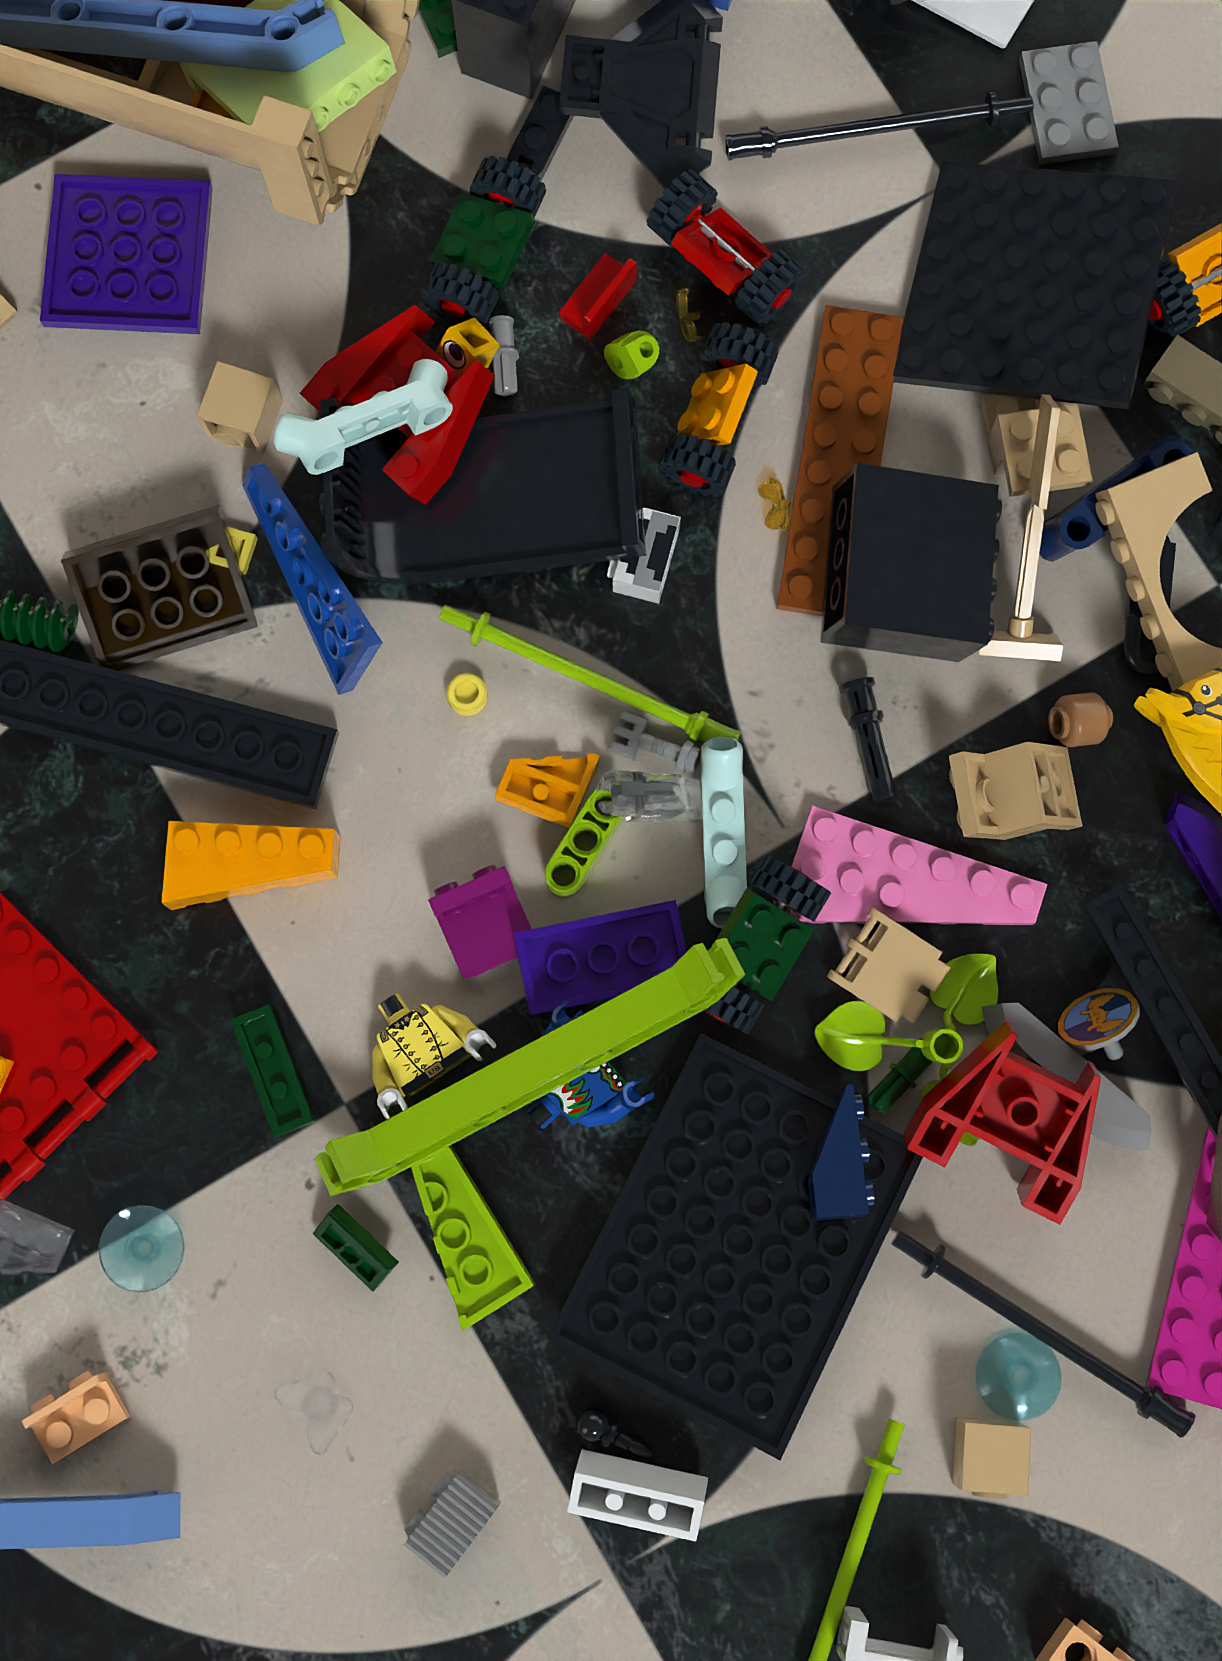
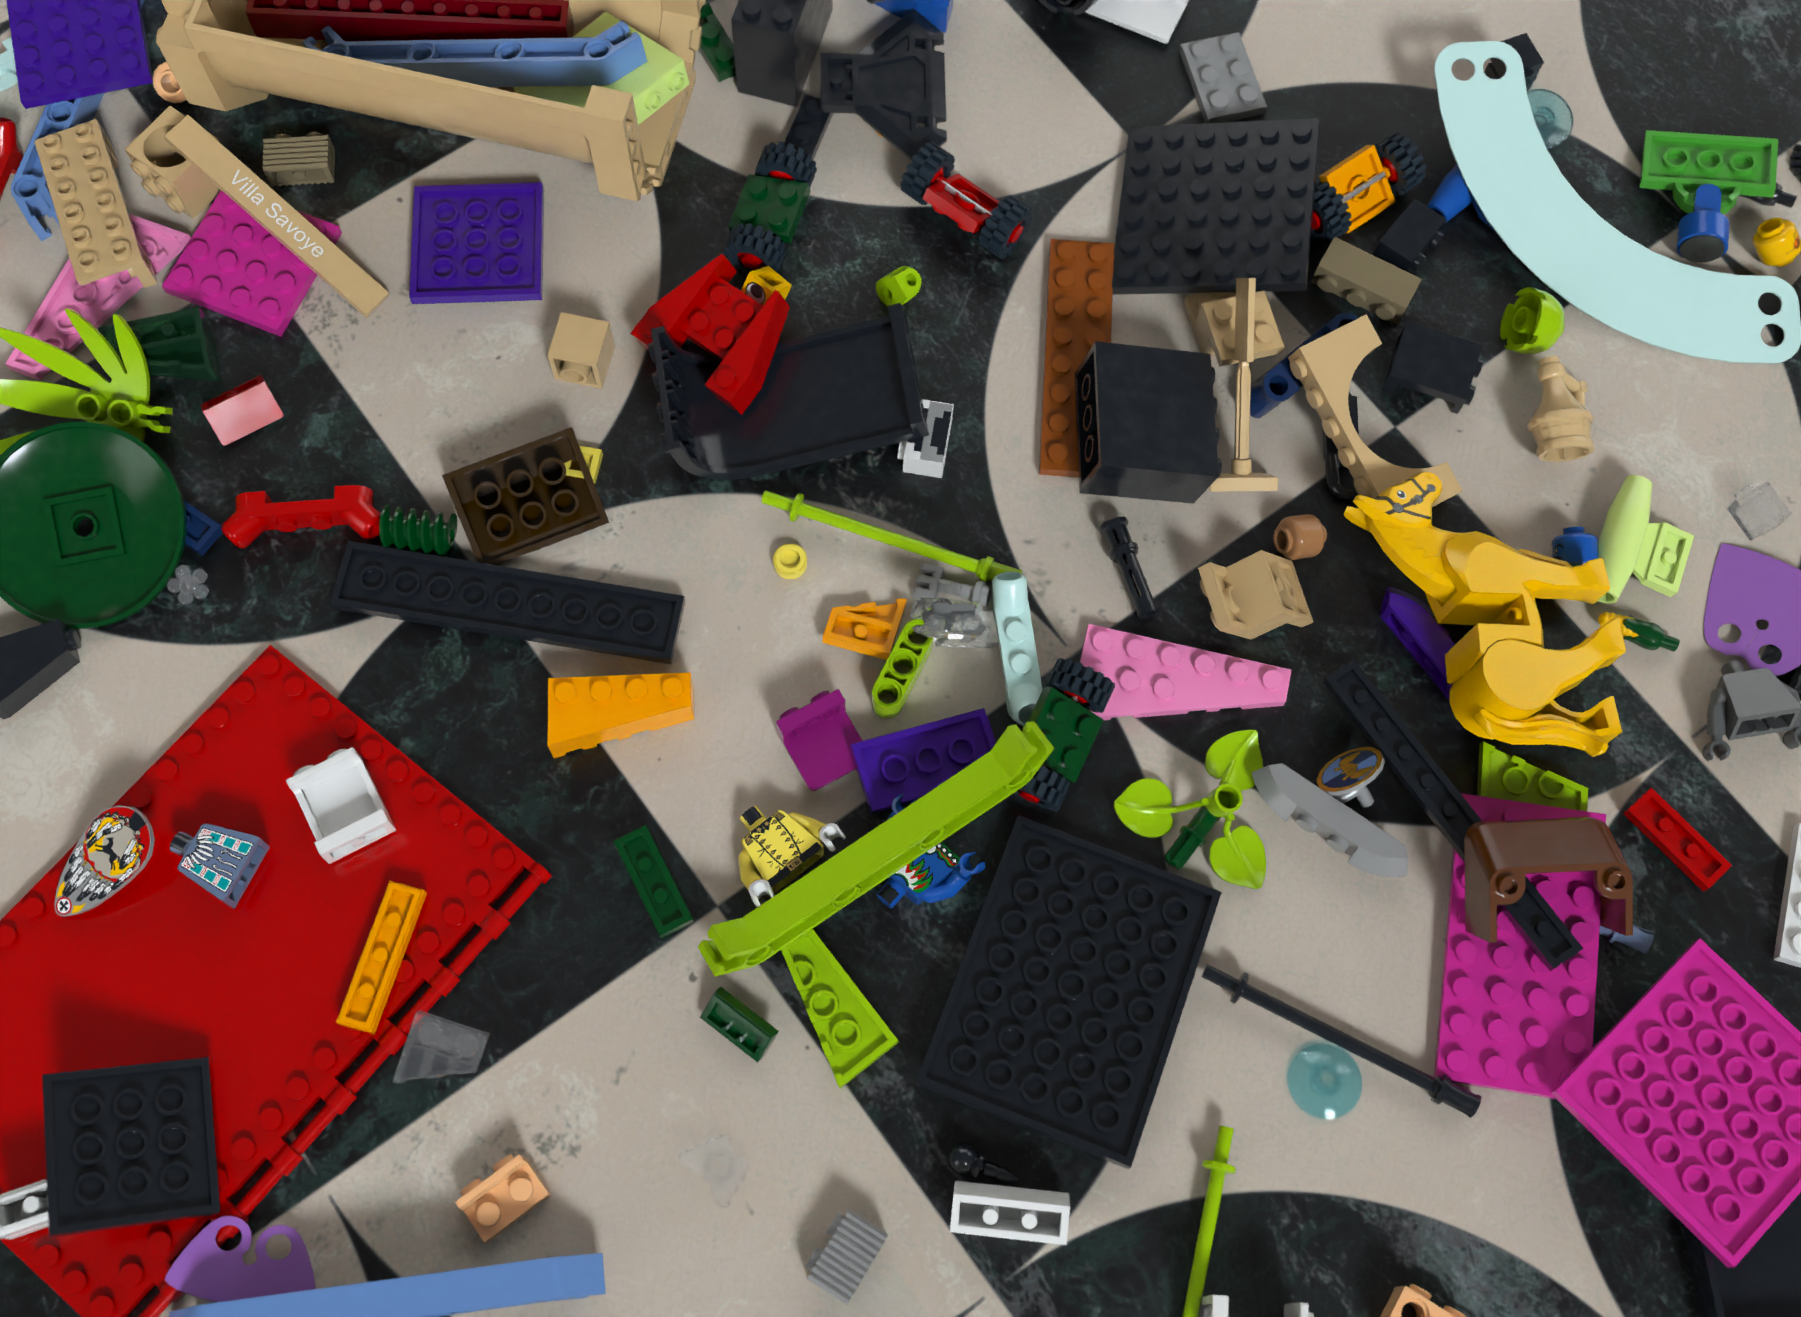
camera: 10 degrees left, 10 degrees down
(120, 1248) = (535, 1033): clear light blue dish -> none
(323, 441) = (658, 355): light aqua plate -> none
(329, 610) = (668, 495): blue wing -> none
(506, 356) = (796, 297): light grey axle -> none
(598, 295) = (867, 246): red panel -> none
(686, 319) = (939, 261): clear yellow piece -> none
(717, 402) = (959, 355): plate -> none
(768, 141) = (989, 122): black bar -> none
(778, 515) = (1032, 401): clear yellow piece -> none
(837, 1174) = (1150, 917): dark blue slope -> none
(891, 968) = (1171, 747): tan plate -> none
(991, 1457) = (1312, 1147): tan head -> none
(1018, 1111) = (1295, 847): red wedge -> none

